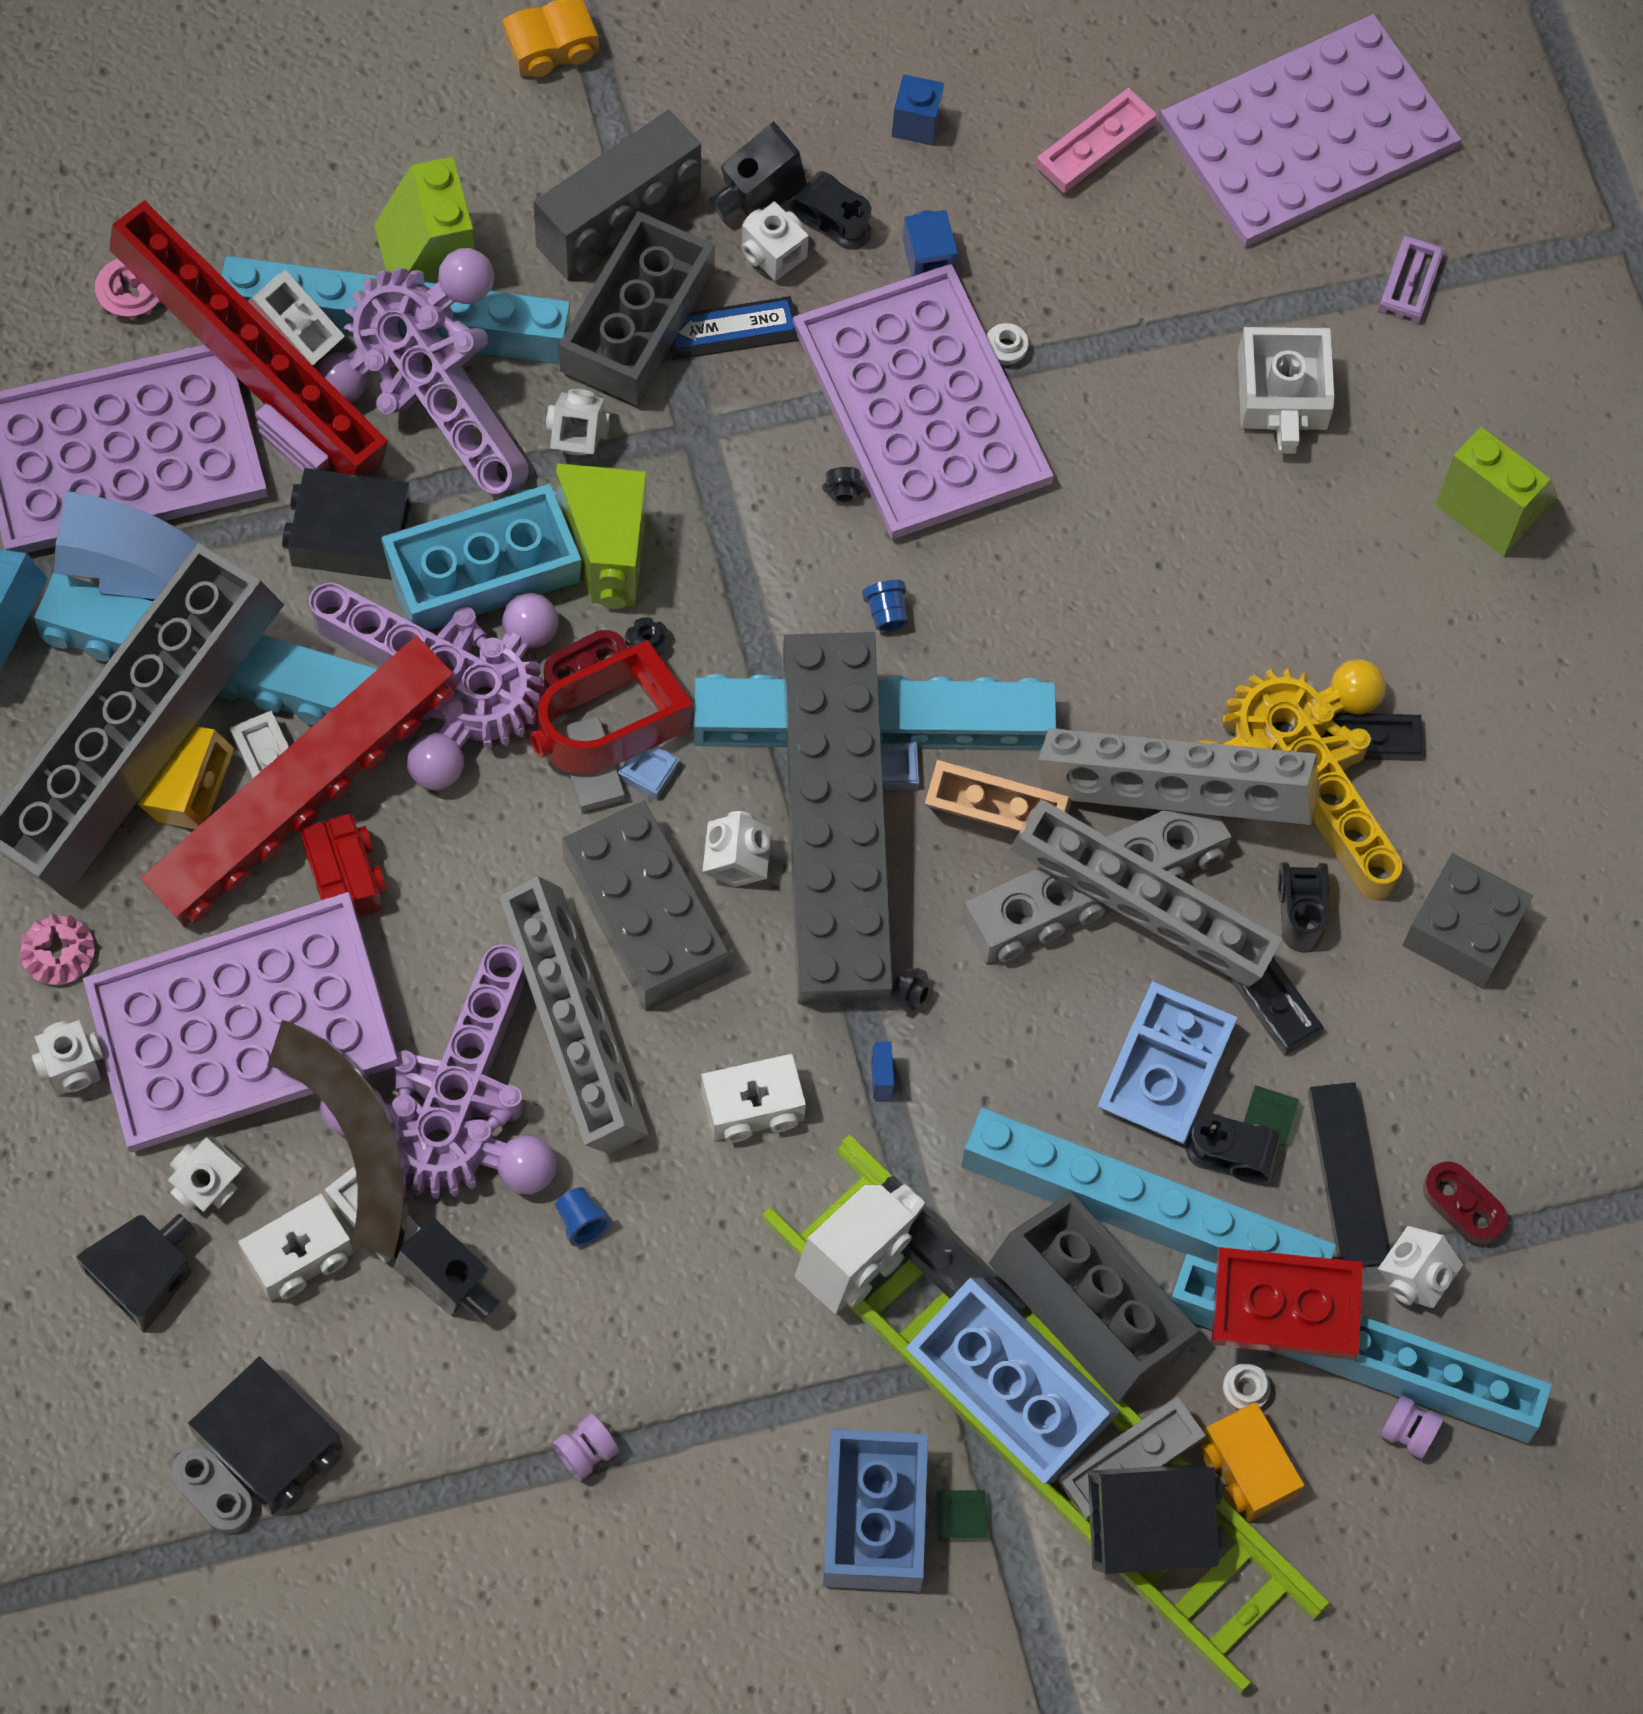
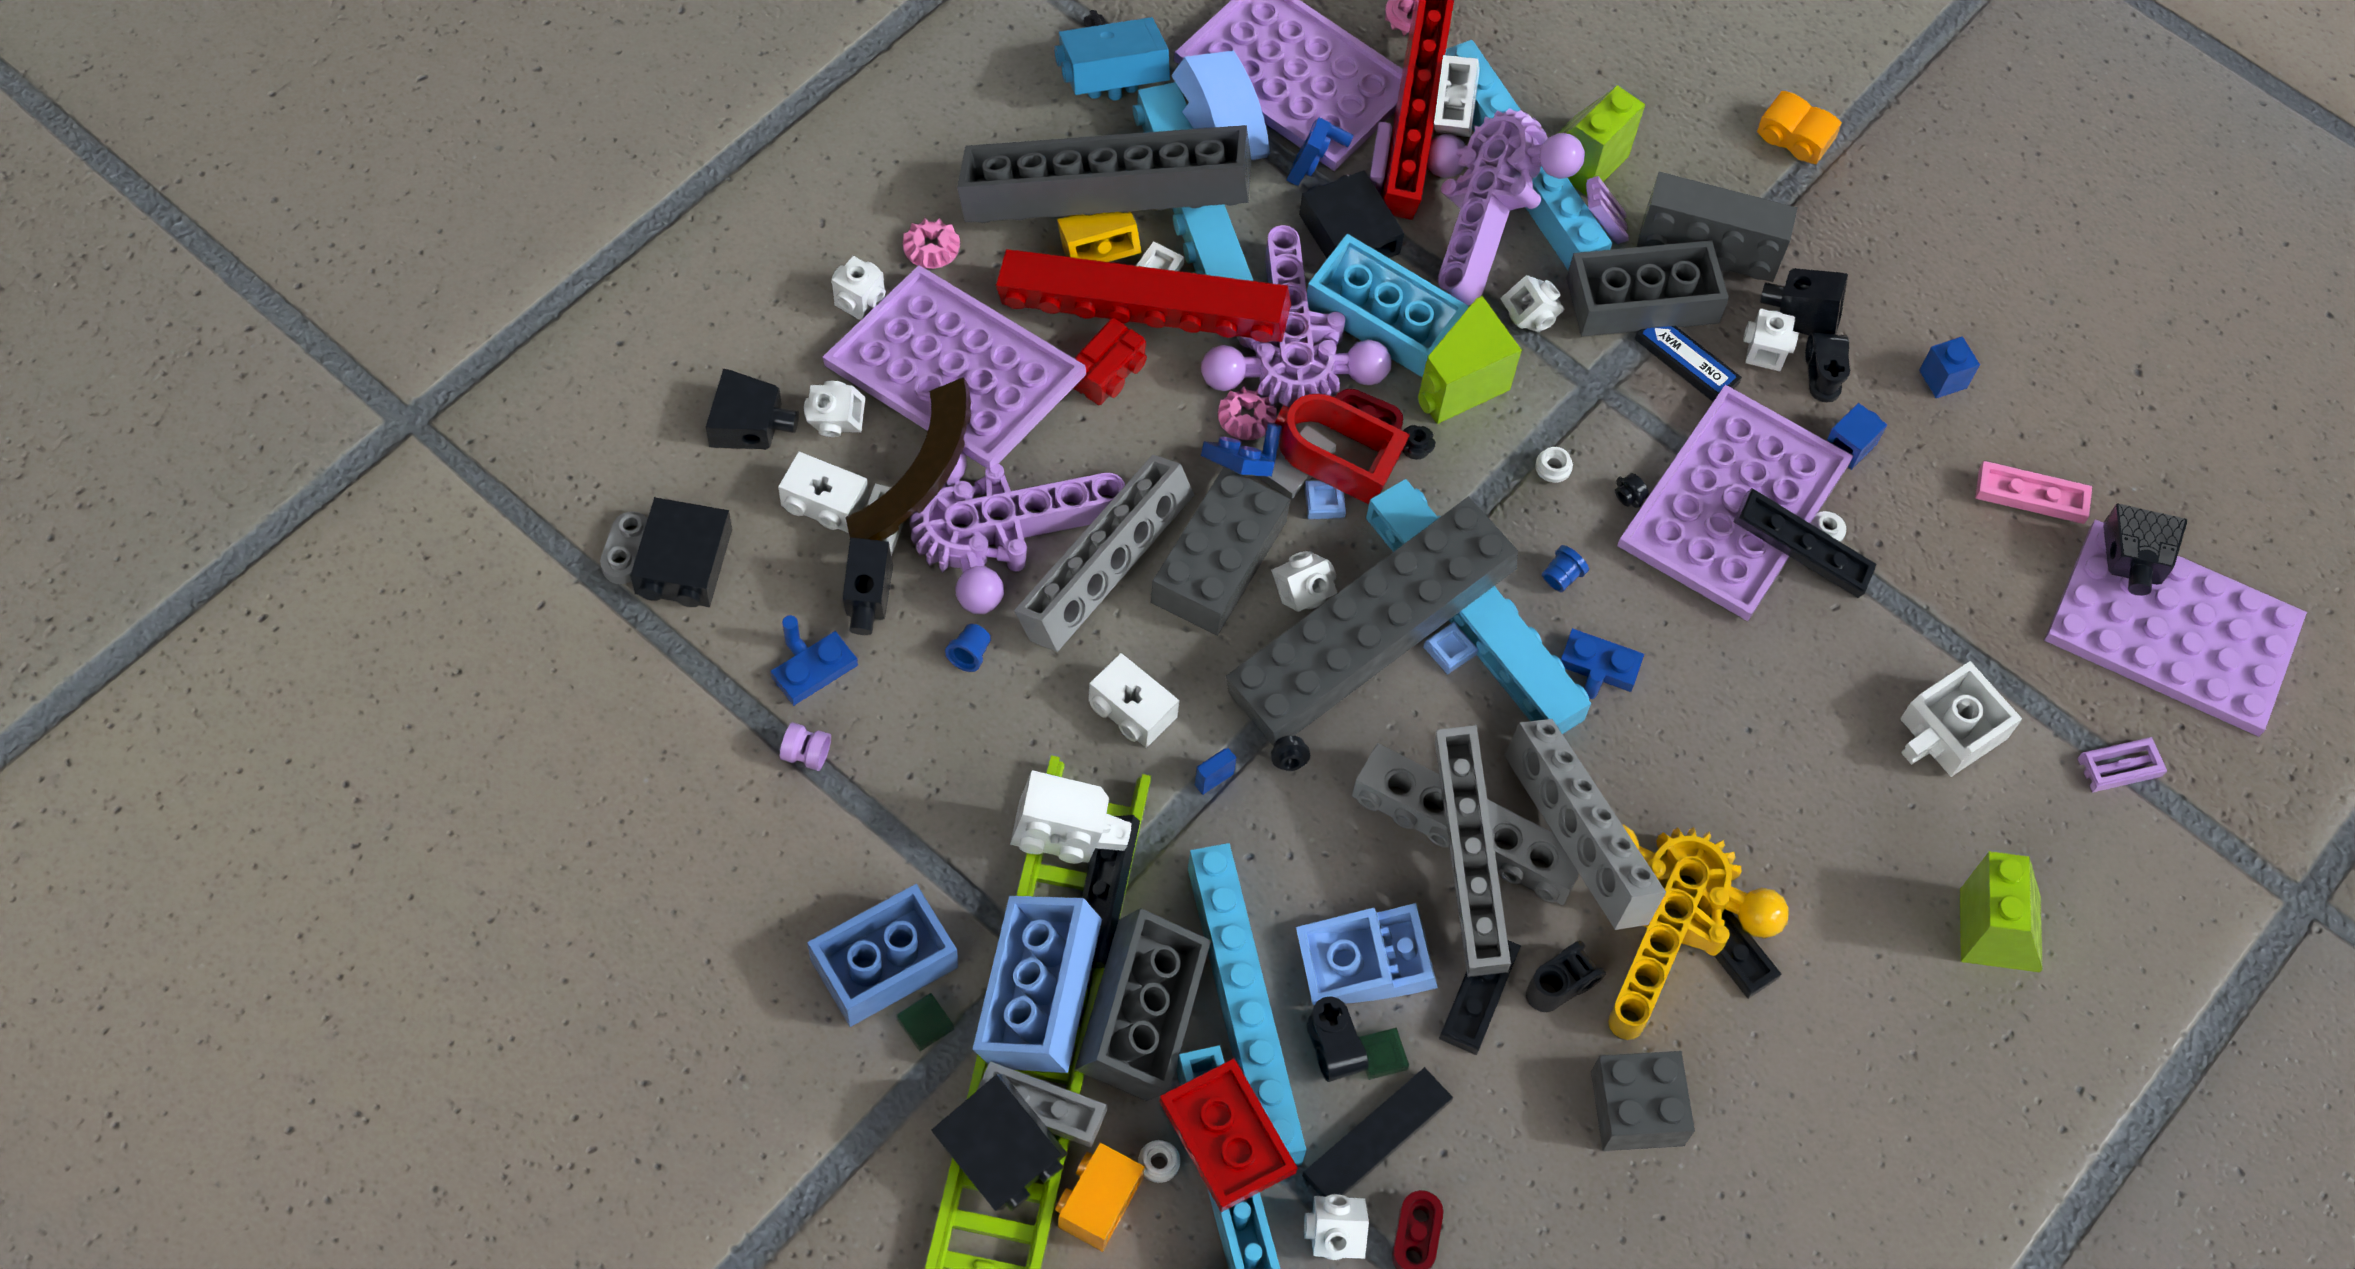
camera: 55 degrees right, 5 degrees down
(241, 496) = (1315, 147): none -> blue plate
(491, 1384) = (811, 666): none -> blue plate
(513, 787) = (1245, 426): none -> bright pink gear
(523, 280) = (1606, 209): none -> lavender tile
(568, 815) = (1242, 458): none -> blue plate
(767, 522) = (1554, 456): none -> white plate
(986, 796) = (1467, 707): light nougat brick -> none
(1005, 641) = (1601, 662): none -> blue plate
(1014, 374) = (1805, 543): none -> black tile
(1226, 95) = (2142, 545): none -> torso

